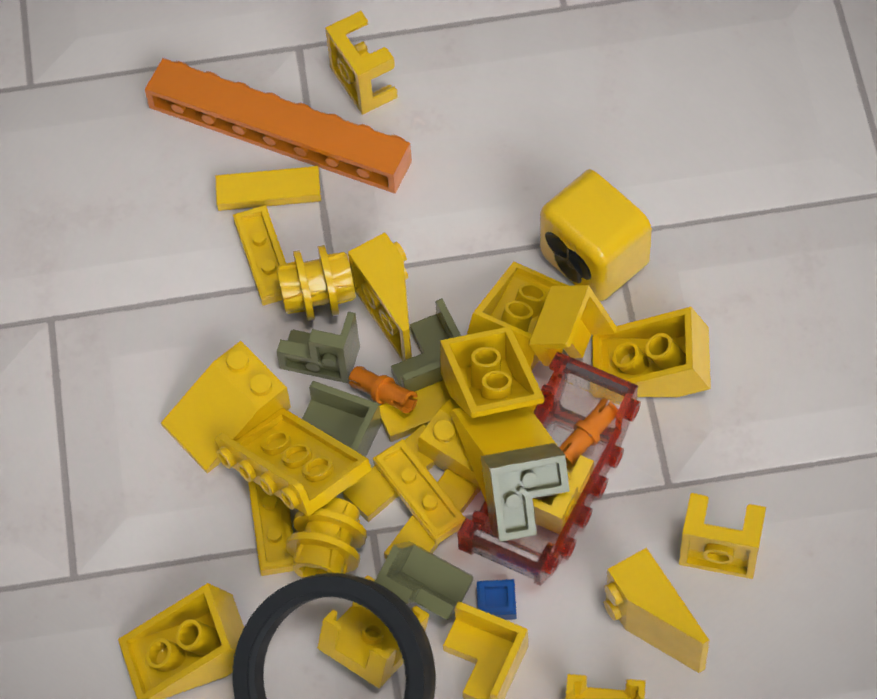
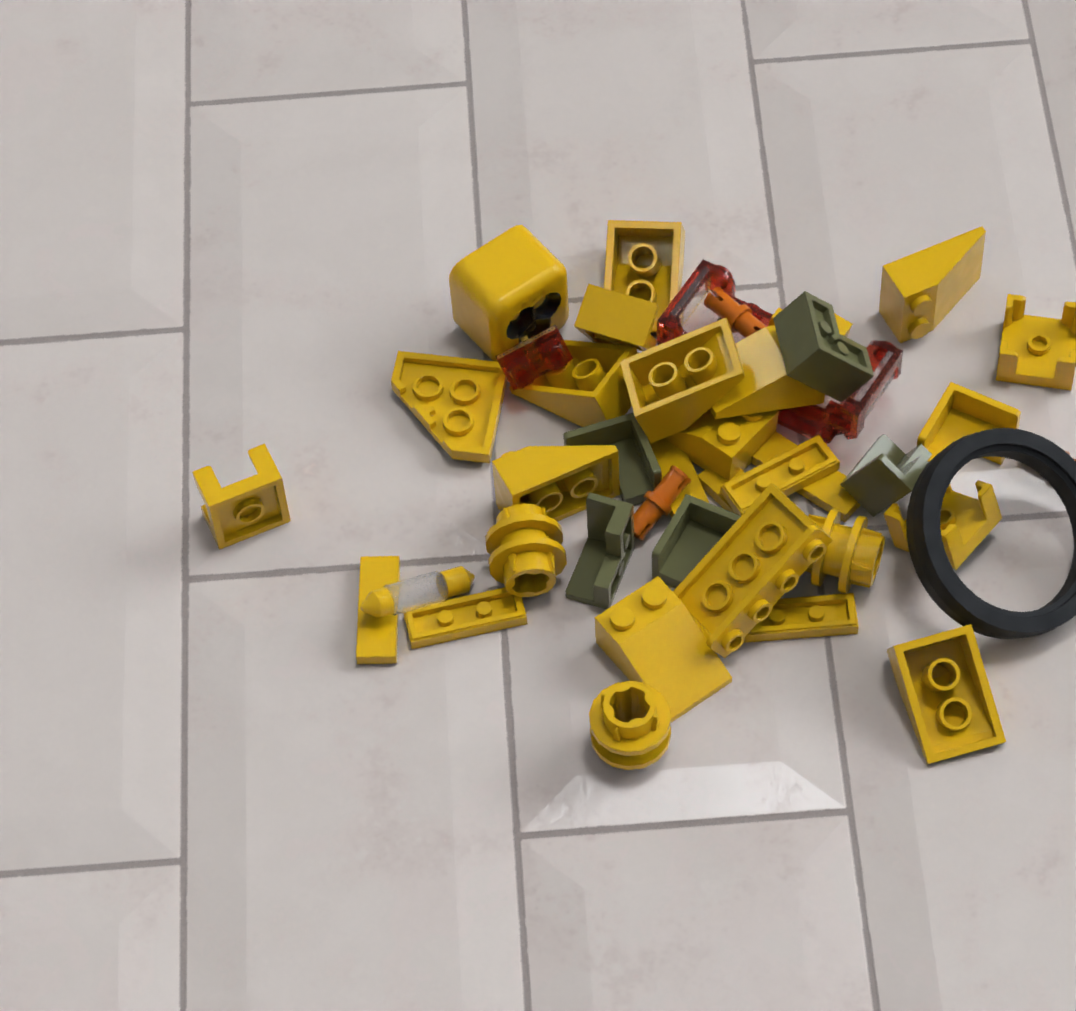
camera: 85 degrees left, 5 degrees down
(134, 380) = (630, 725): none -> yellow piece
(276, 209) = (418, 592): none -> piece
(279, 125) = (297, 594): orange brick -> none
(492, 218) = (453, 400): none -> yellow plate
(497, 598) = (900, 425): blue tile -> none
(531, 268) = (534, 357): none -> clear red hips
(719, 547) = (858, 228): yellow panel -> none

